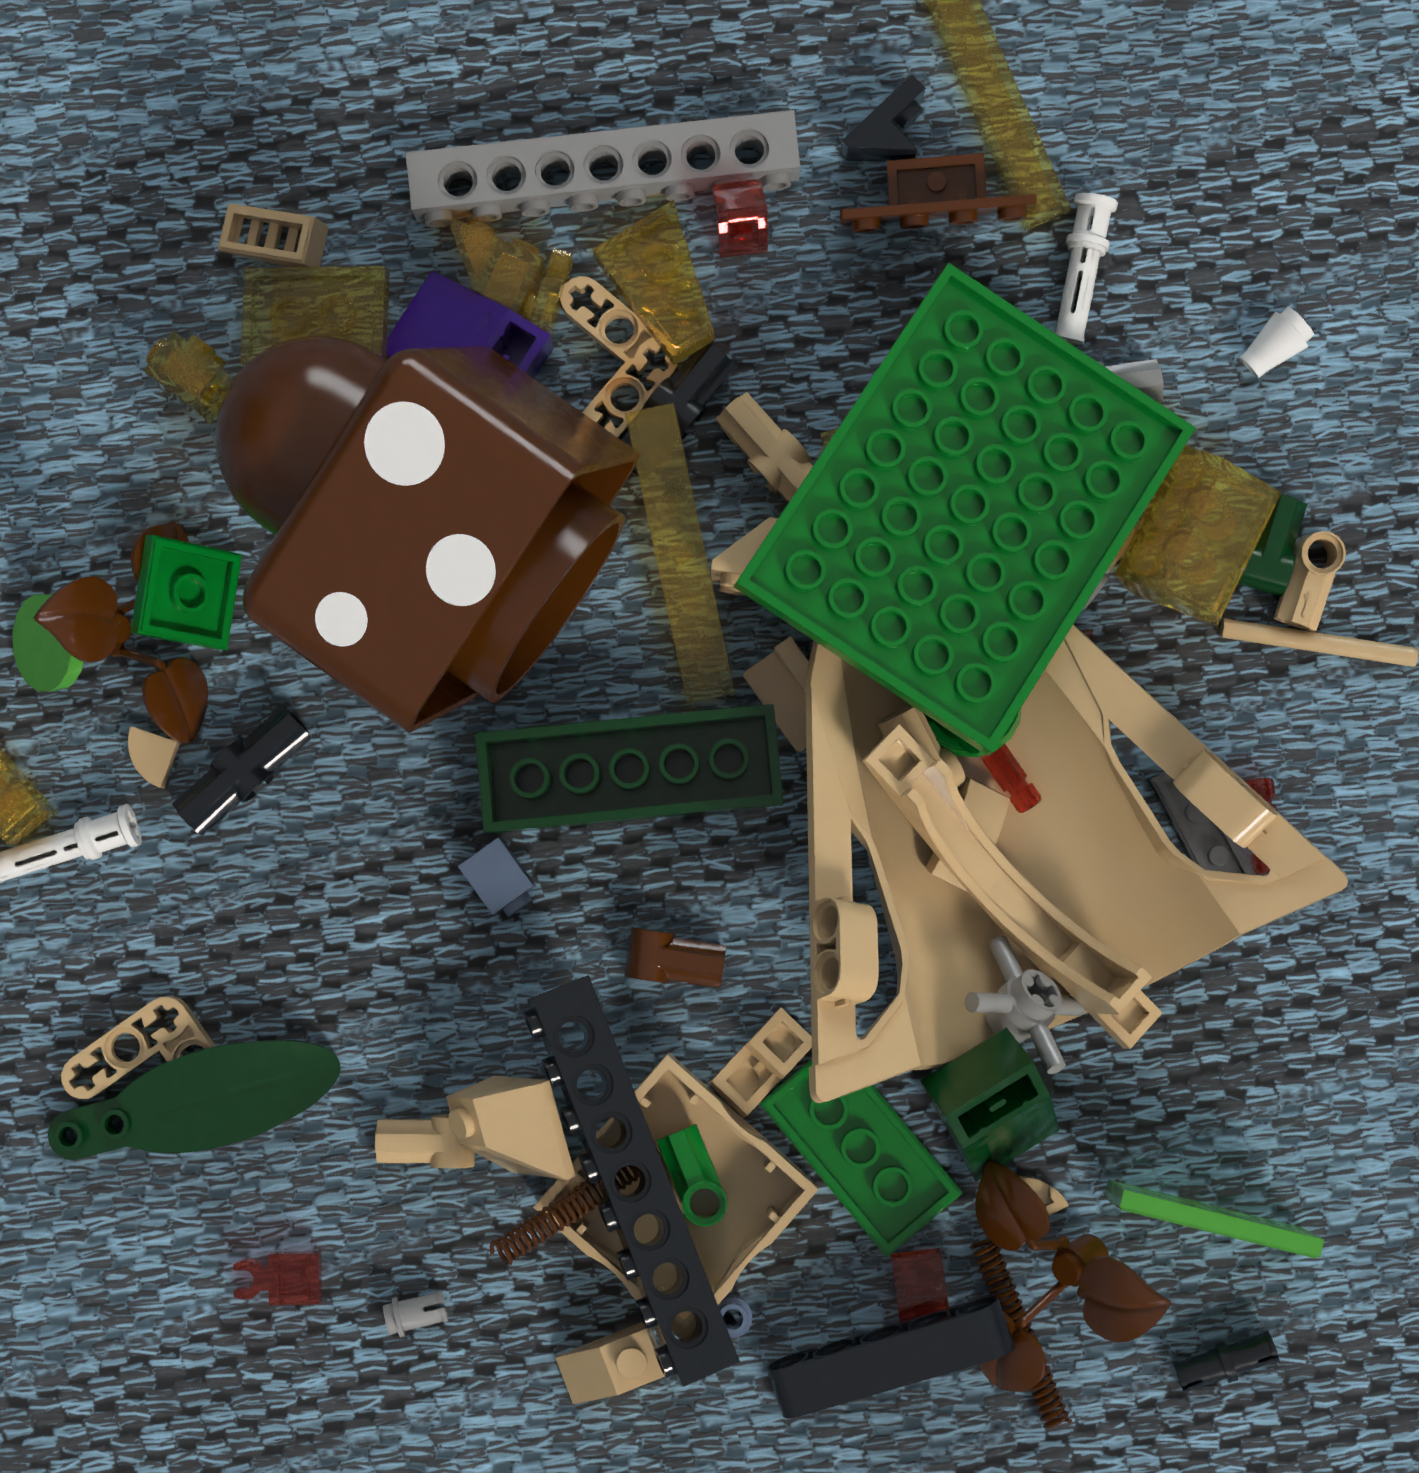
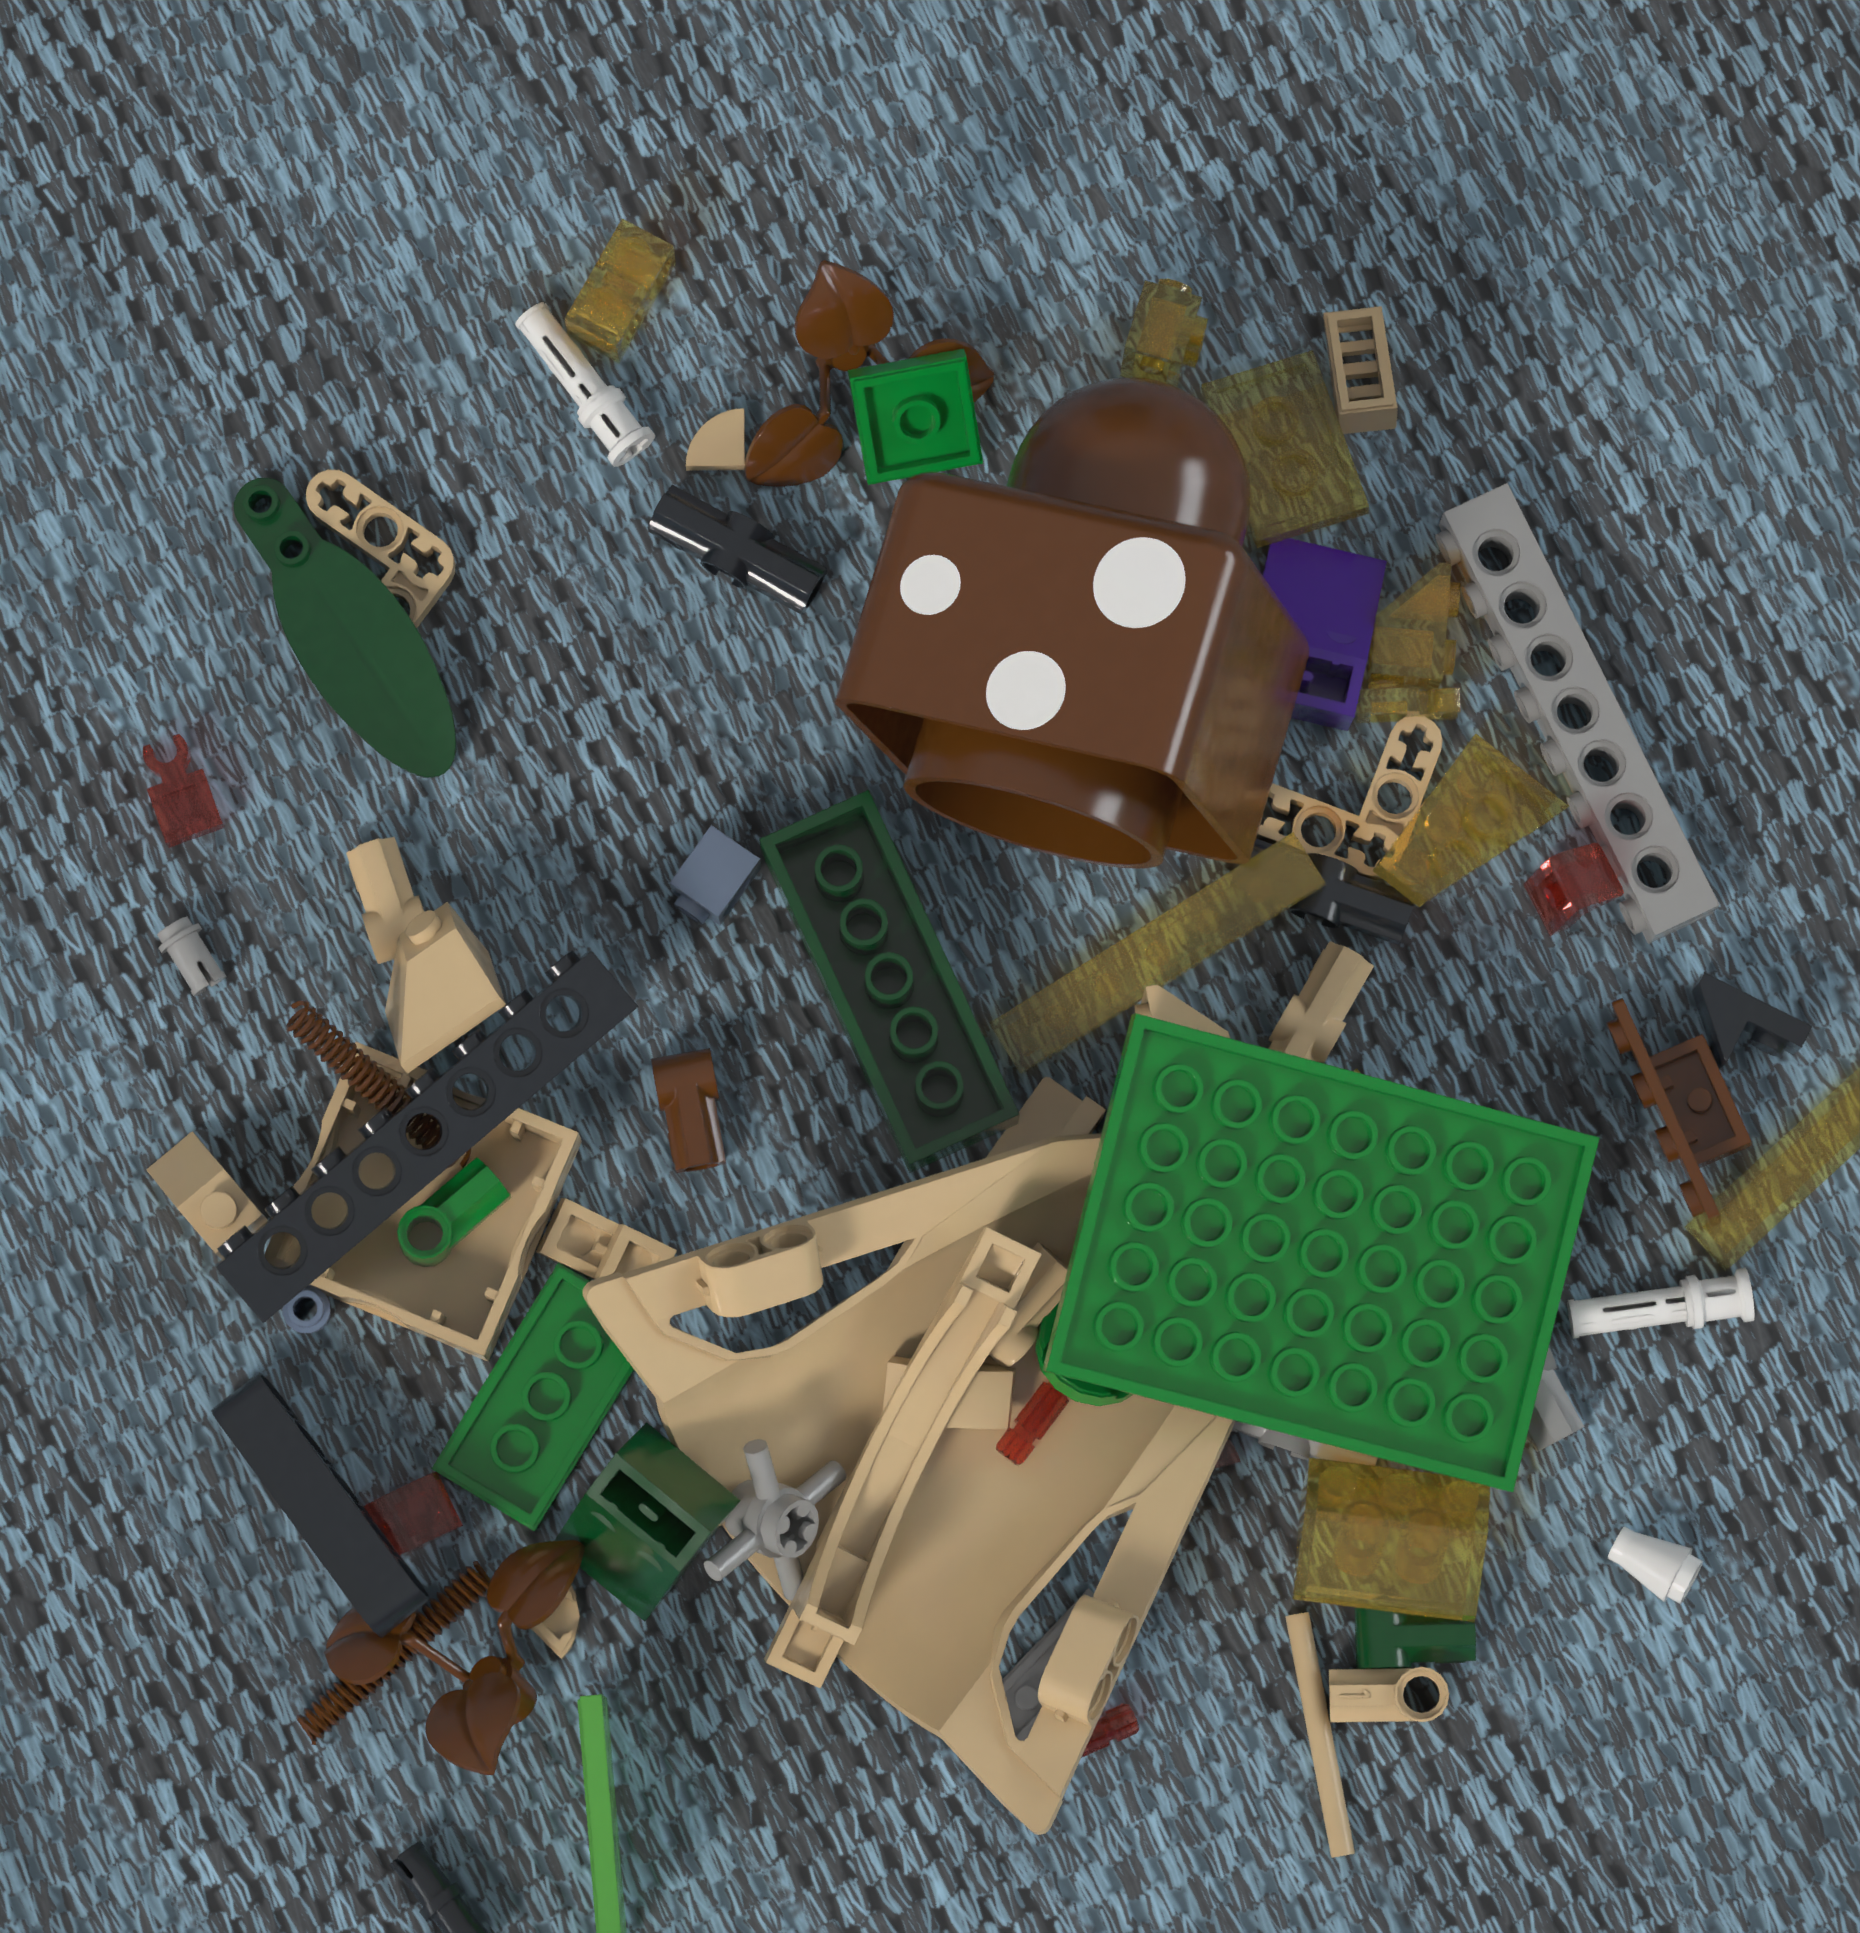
camera: 65 degrees right, 5 degrees down
(38, 653) = (787, 277): bright green tile -> none

